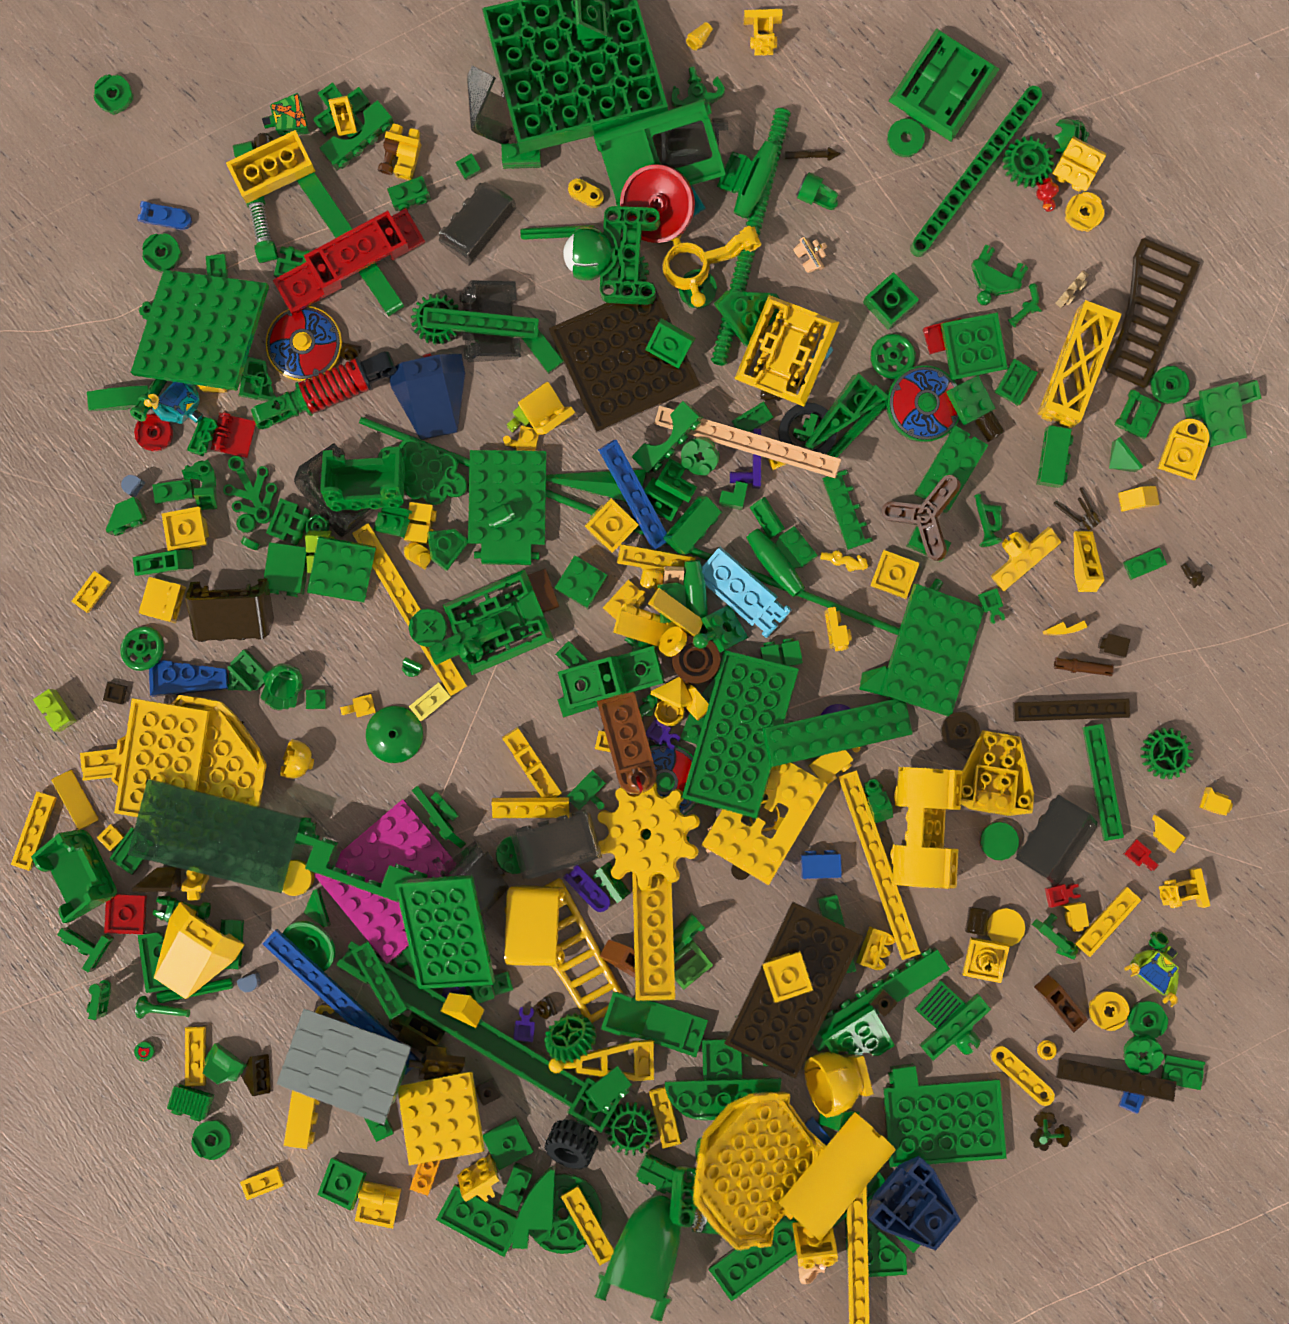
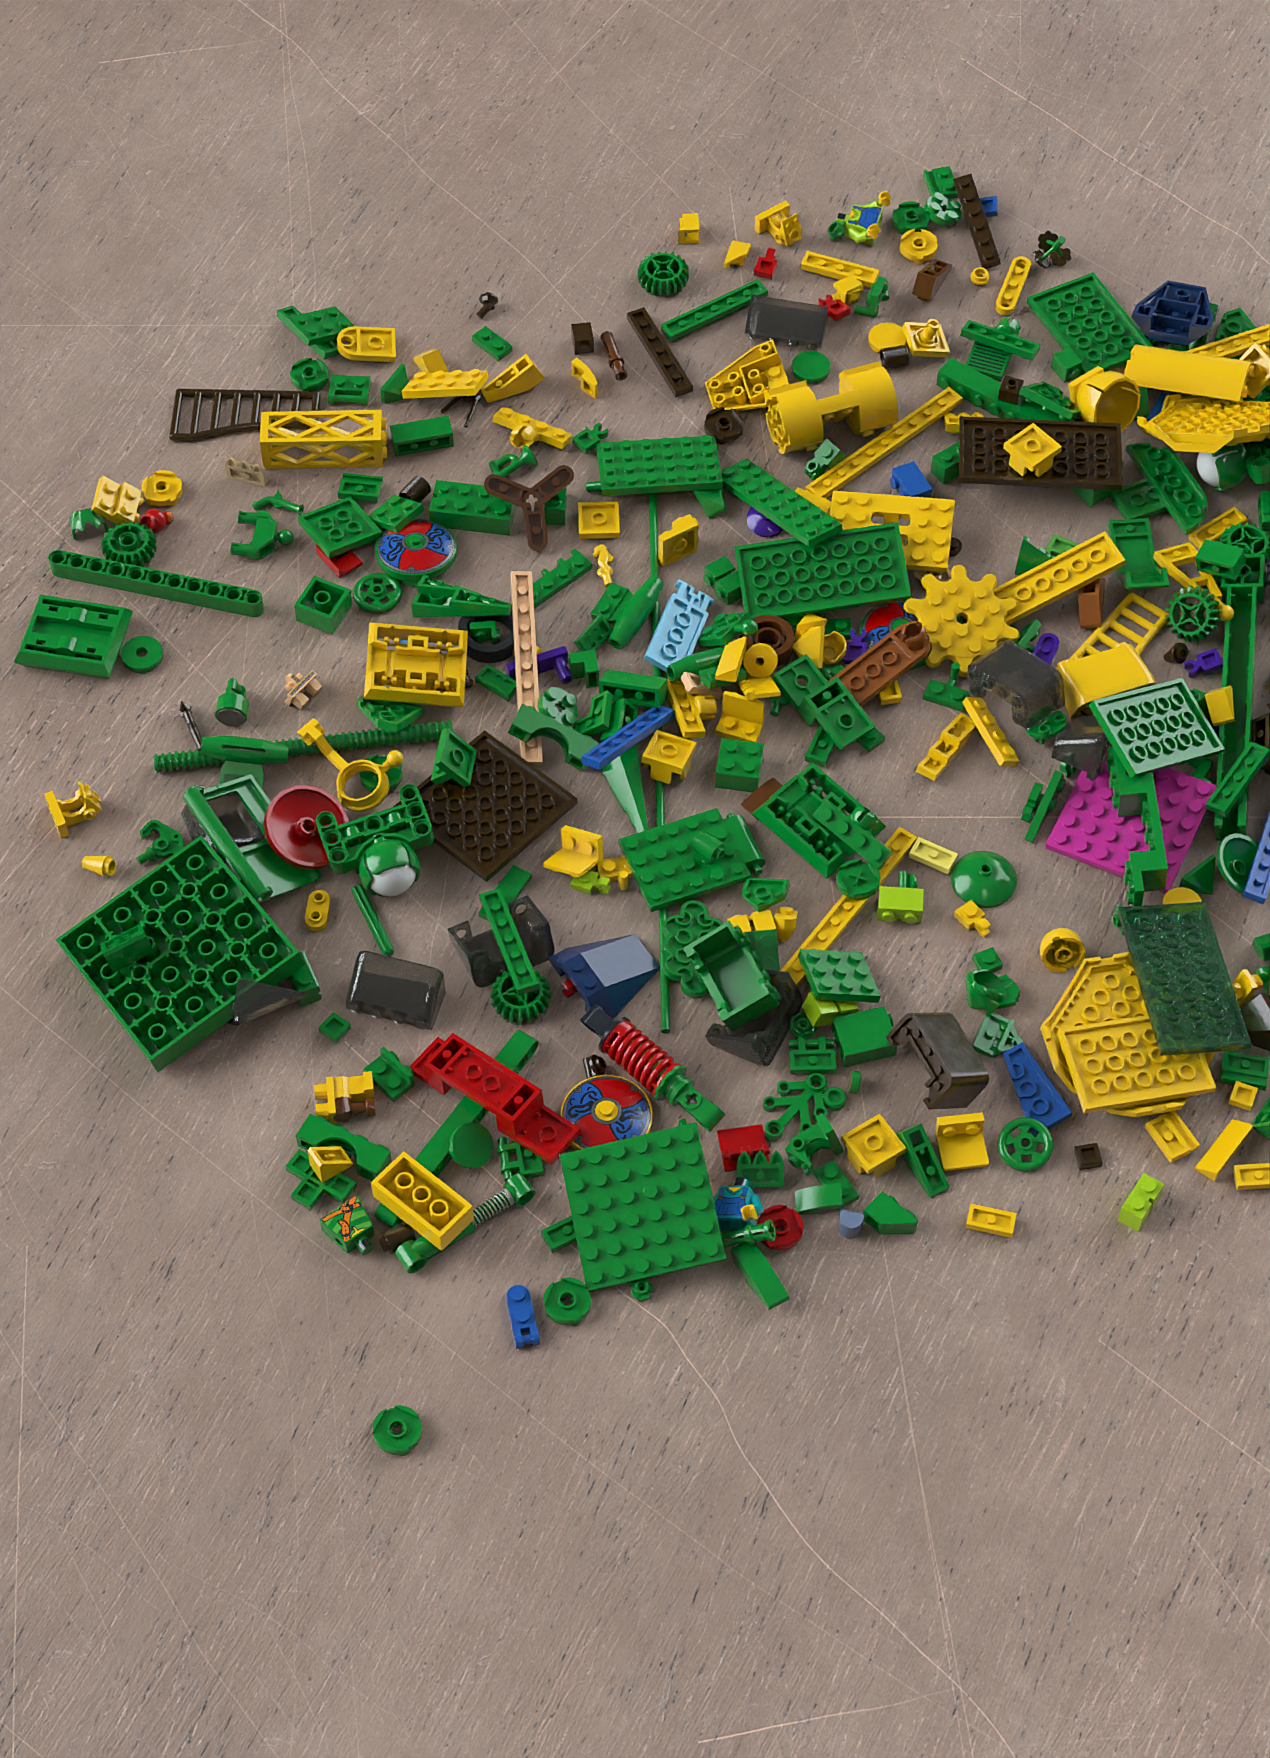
camera: 115 degrees left, 30 degrees down
(162, 470) = (817, 1198): none -> green slope
(315, 228) = (471, 1145): none -> green tile
(393, 651) = (900, 904): none -> lime piece
(1100, 495) = (445, 384): none -> yellow plate

